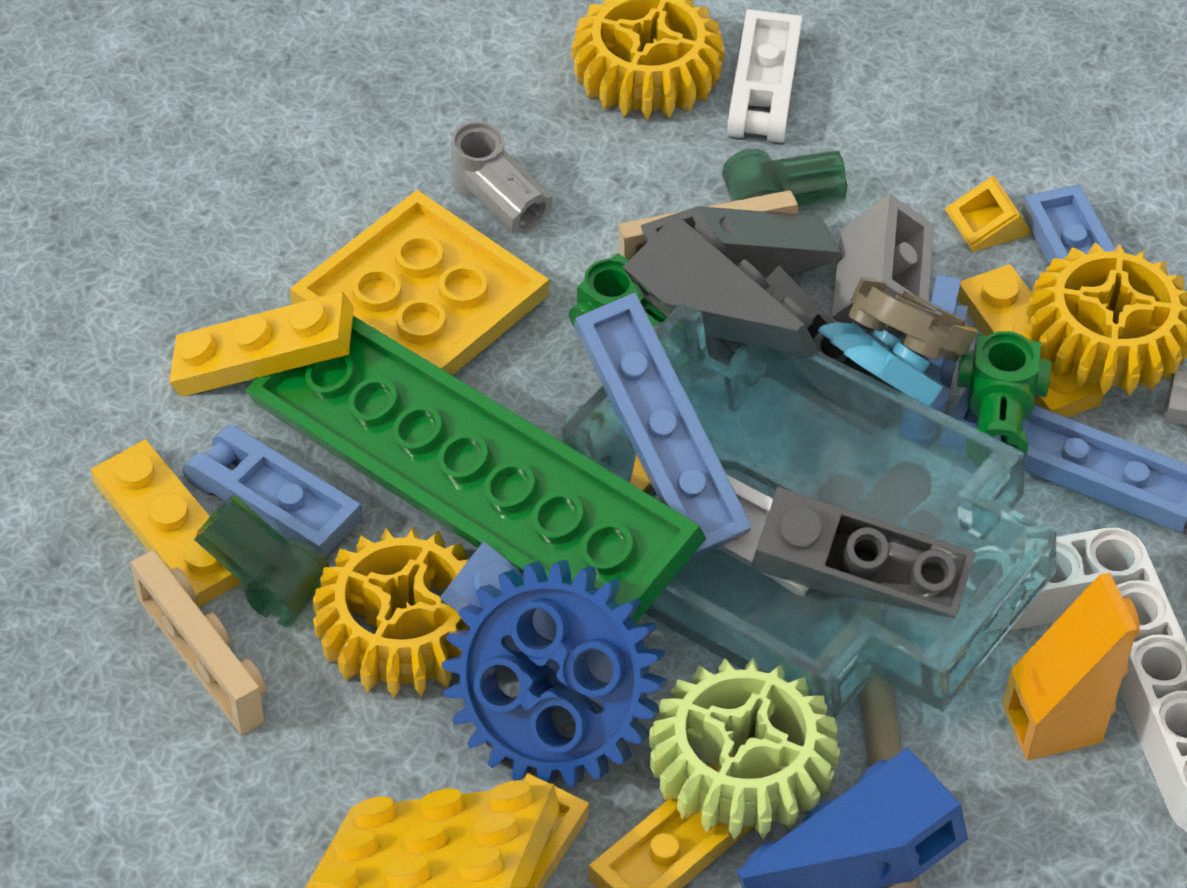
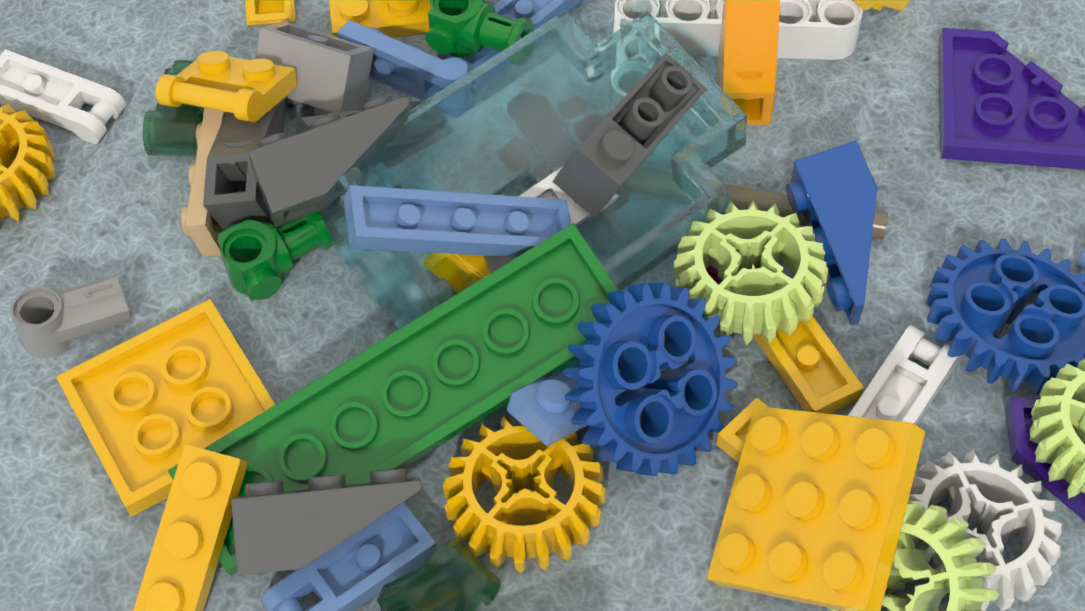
camera: 70 degrees left, 5 degrees up
(285, 405) = (293, 528): none -> dark grey slope
(823, 198) = (228, 85): none -> yellow plate
(886, 358) = (442, 66): medium azure plate -> none
(928, 327) = (391, 50): dark tan plate -> none

